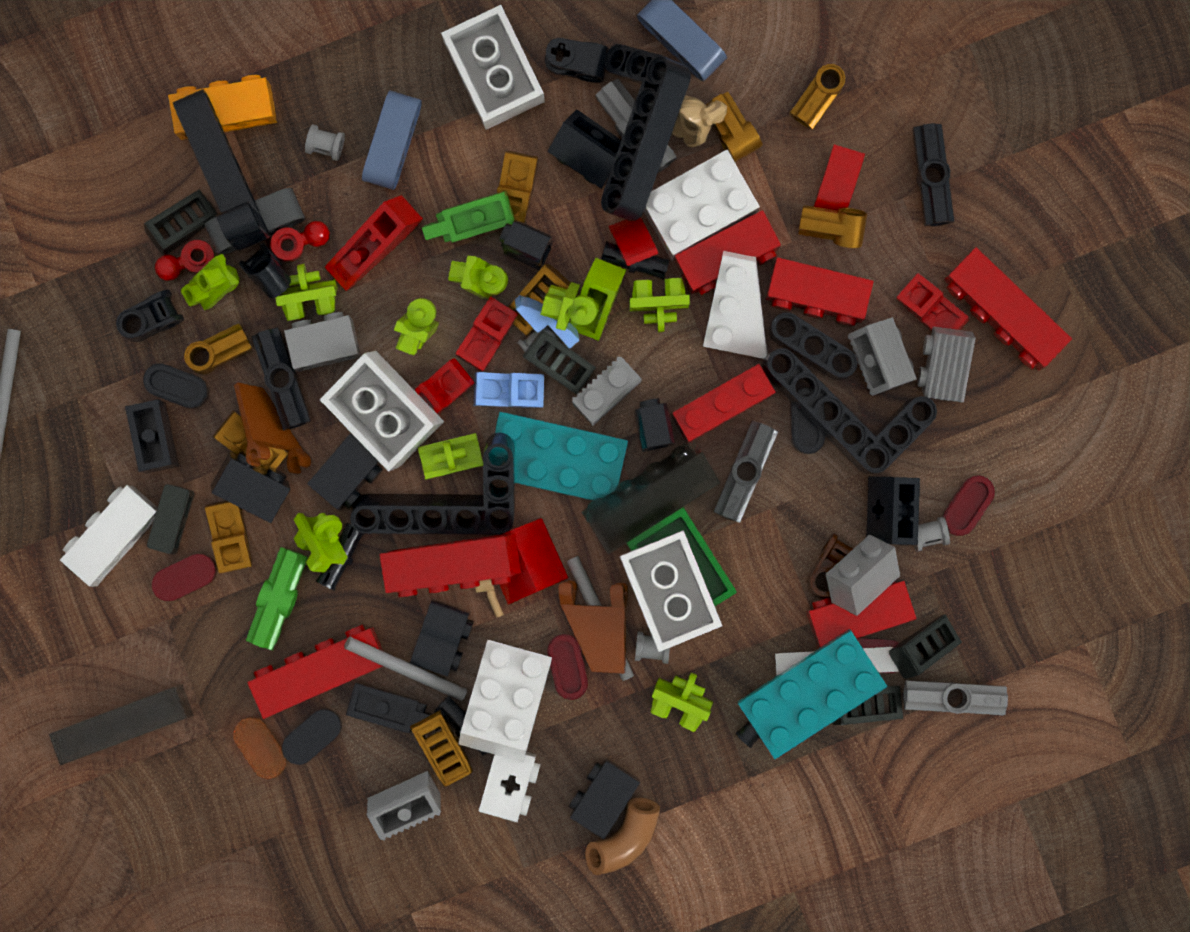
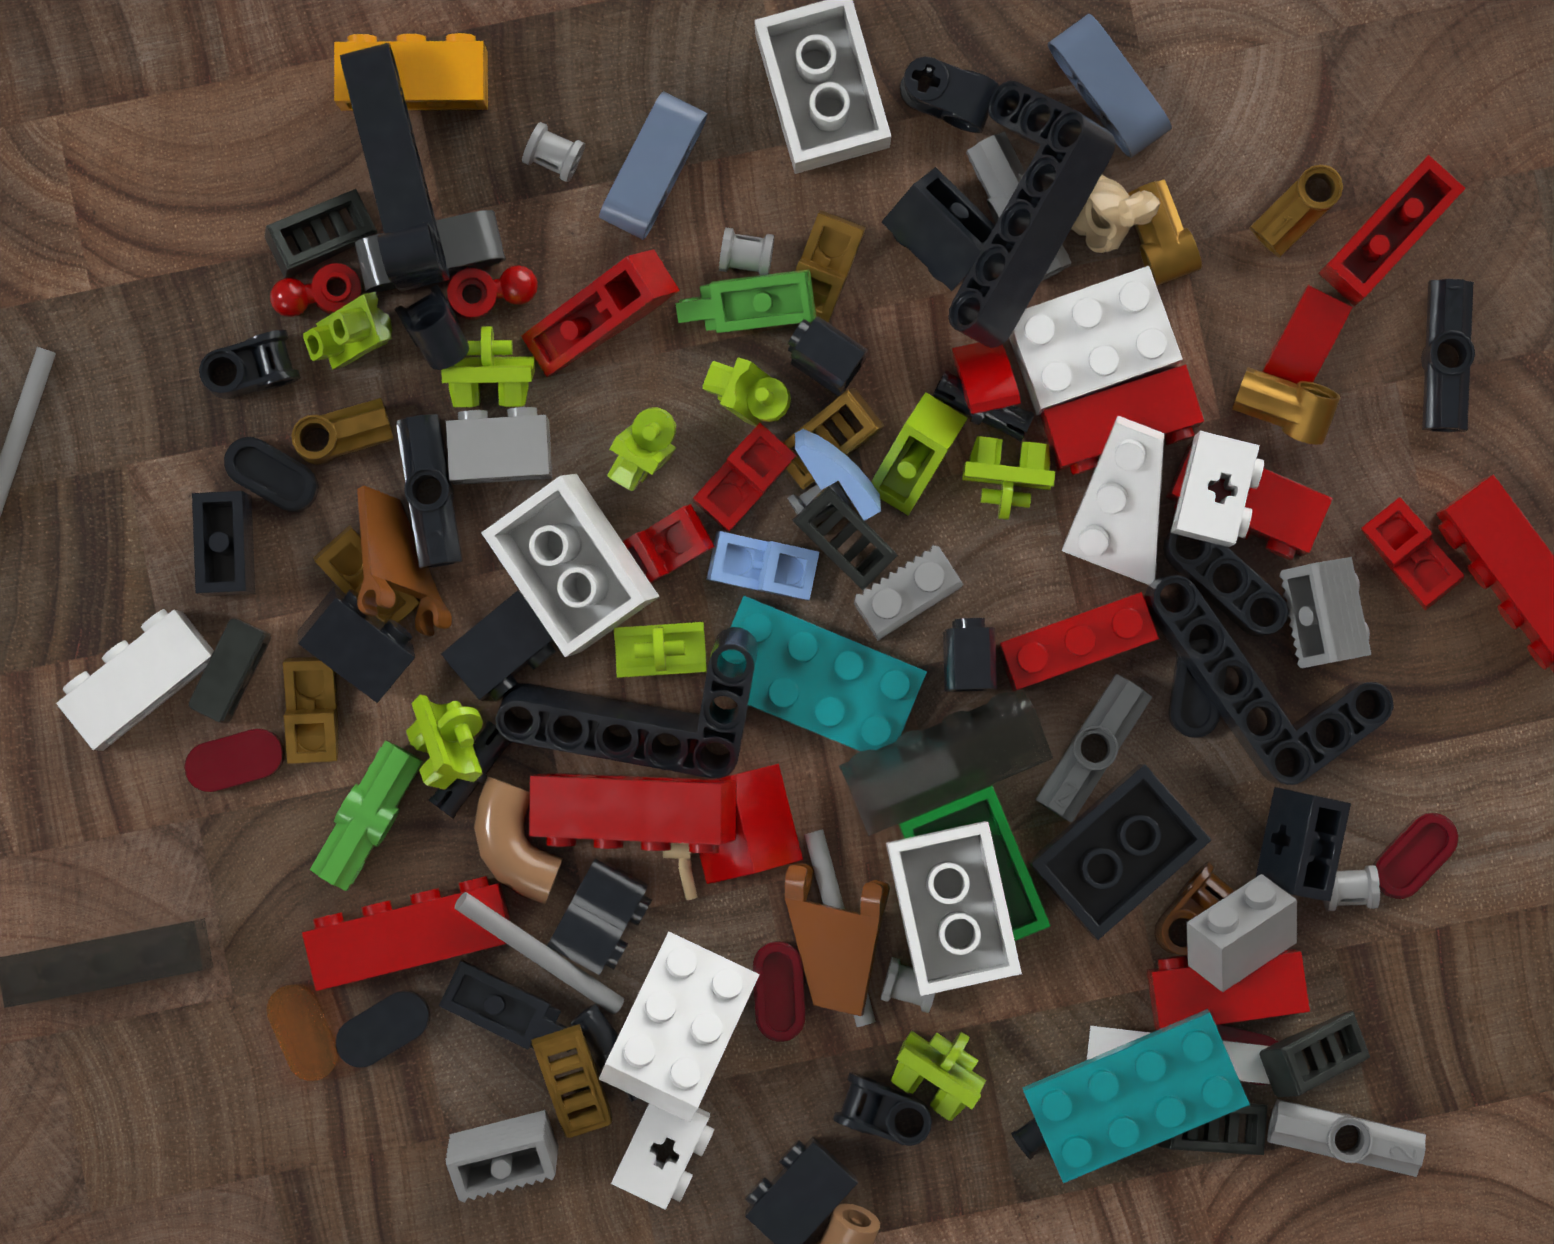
camera: 10 degrees right, 0 degrees up
(372, 603) = (505, 845): none -> medium nougat cylinder
(462, 186) = (746, 252): none -> light grey bush
(564, 305) = (869, 456): lime hips -> none
(647, 733) = (880, 1110): none -> black piece
(774, 536) = (1119, 851): none -> black brick
(789, 269) = (1196, 510): none -> white brick
(882, 99) = (1391, 230): none -> red brick
(947, 364) = (1420, 640): light grey brick -> none

